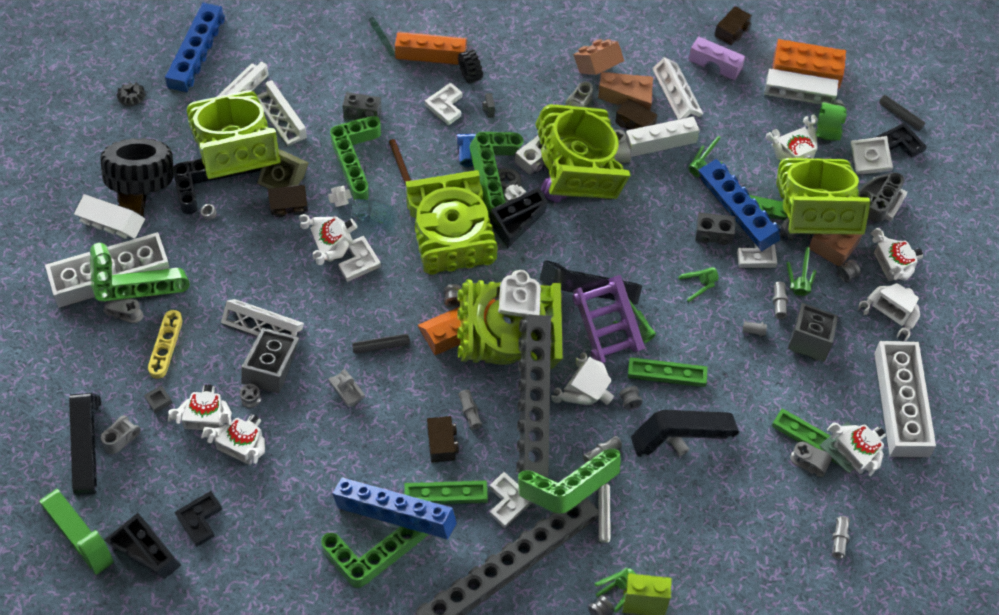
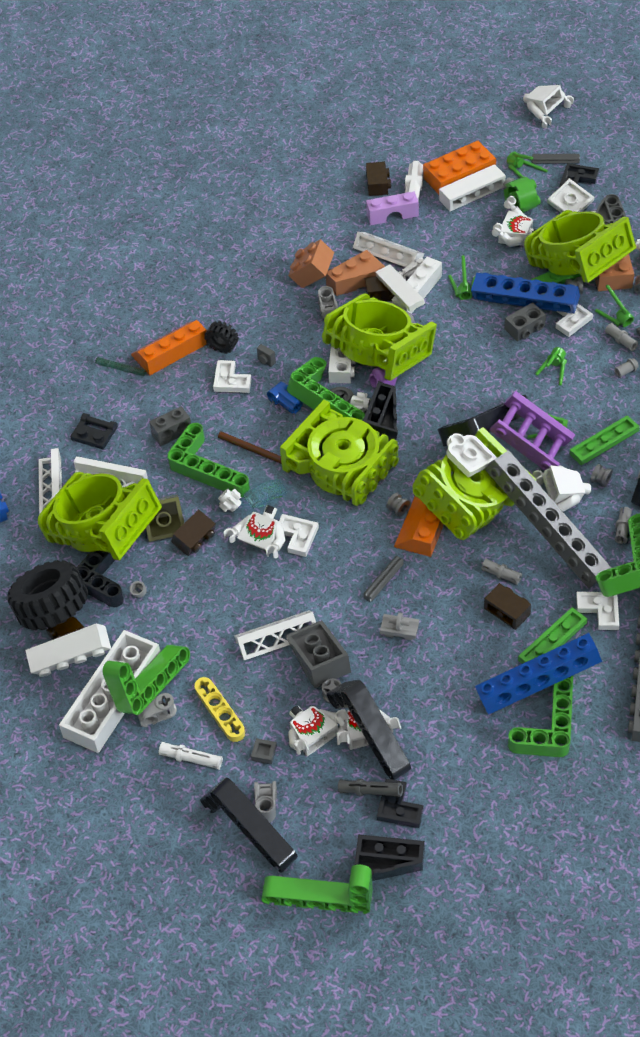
camera: 35 degrees left, 5 degrees down
(109, 360) = (182, 753): none -> white pin
(182, 474) = (363, 787): none -> dark grey pin
(237, 411) = (372, 724): none -> black beam
(306, 75) = (93, 436): none -> black plate
(639, 126) = (400, 288): none -> white tile
(663, 118) = (410, 269): none -> white axle
(760, 48) = (414, 179): none -> white piece
(865, 91) = (516, 160): none -> bright green plant
(947, 55) = (544, 100): none -> white torso

